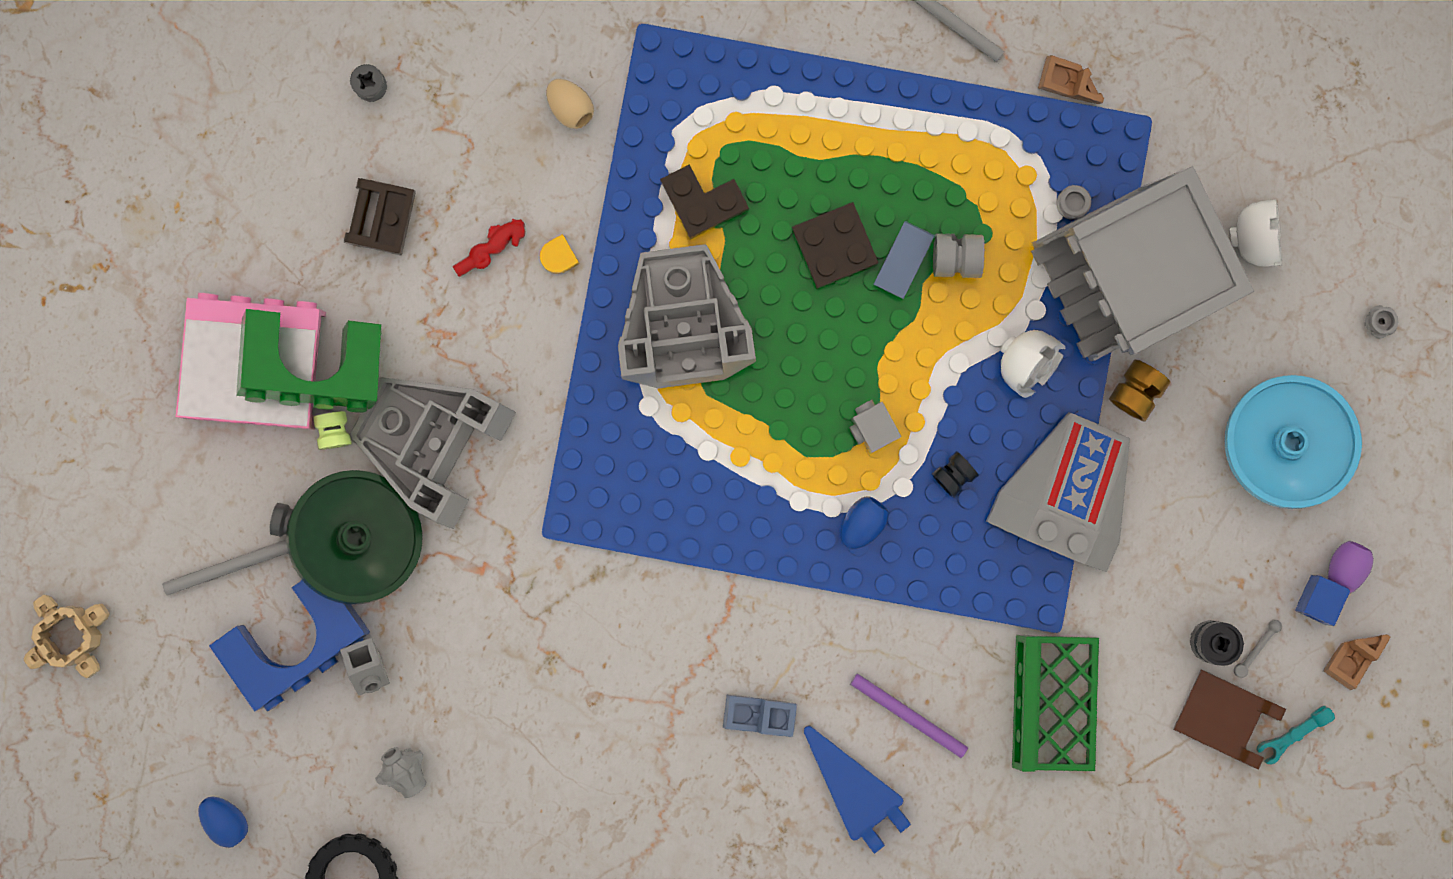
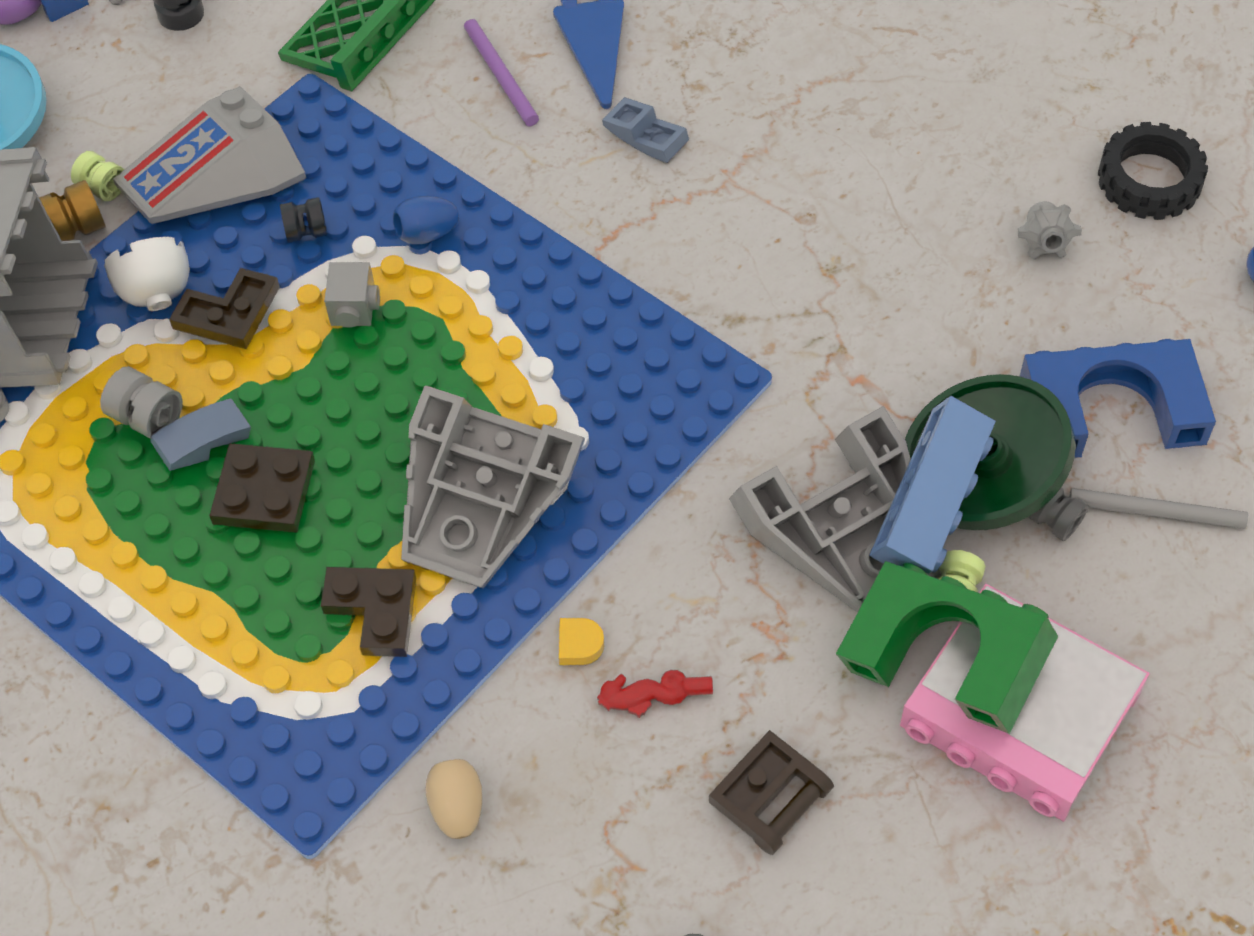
camera: 150 degrees left, 30 degrees down
(364, 666) = (1040, 327): light grey brick -> none
(371, 475) = (934, 487): none -> medium blue brick
(948, 364) = (230, 318): none -> dark brown plate
(1147, 438) = (97, 173): none -> yellowish green wheel

